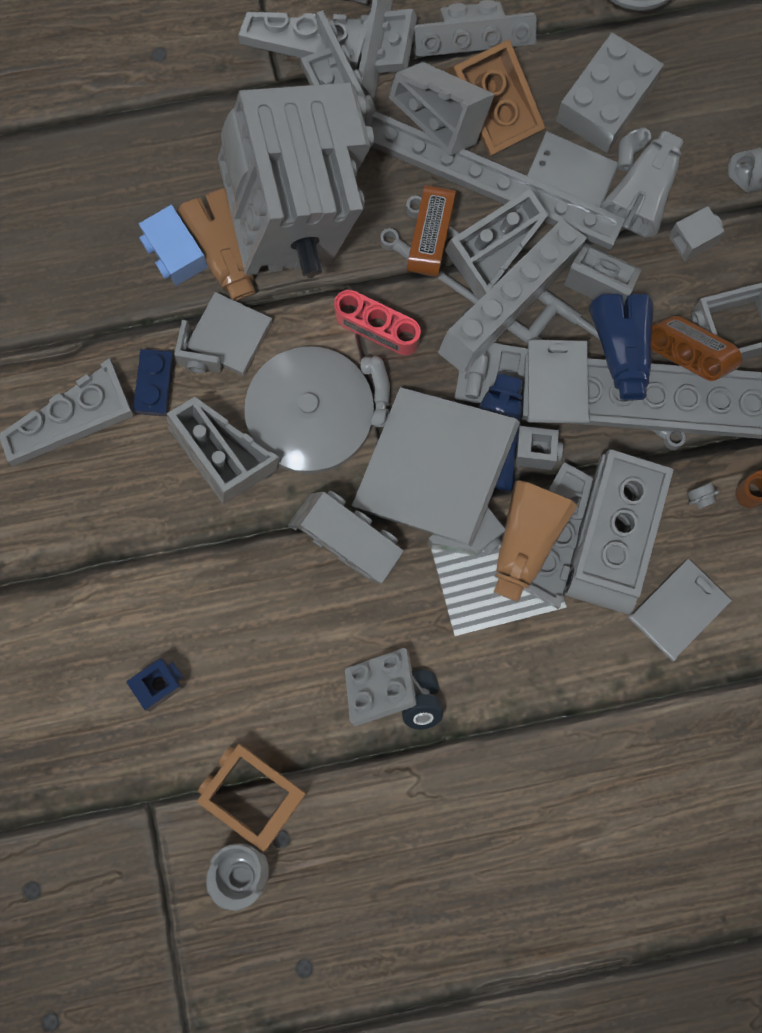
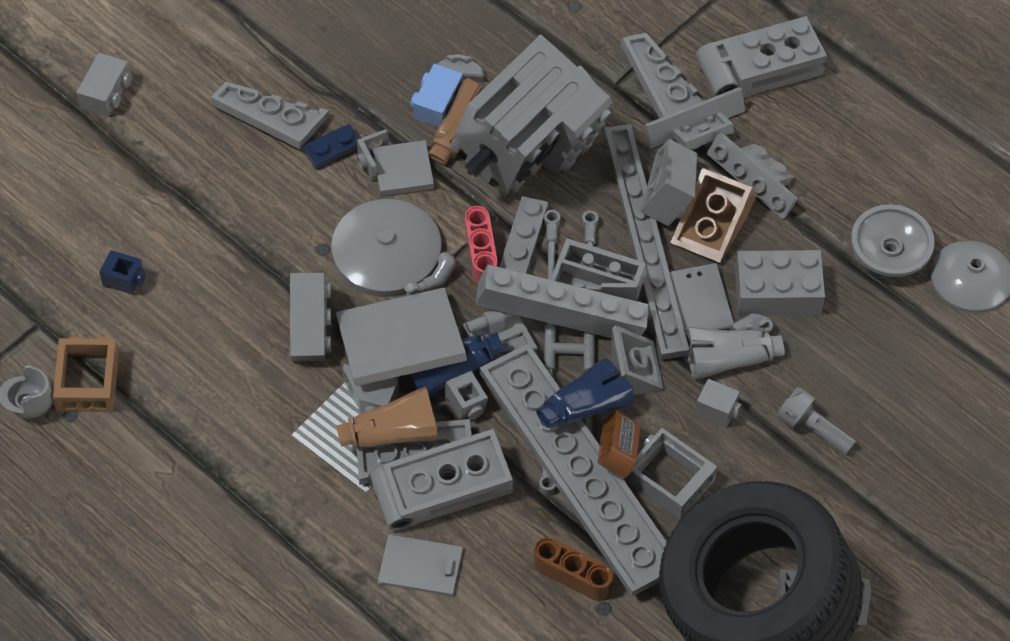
camera: 55 degrees right, 20 degrees down
(151, 201) = (464, 65): none -> light grey tile
(218, 450) = (310, 208): light grey wedge -> none
(333, 65) = (635, 104): light grey bracket -> none
(390, 686) = (223, 404): light grey plate -> none
(397, 285) = (524, 235): none -> light grey plate
(431, 230) = (587, 227): dark orange beam -> none
(557, 382) = (522, 373): light grey container -> none
(703, 496) = (517, 526): light grey plate -> none

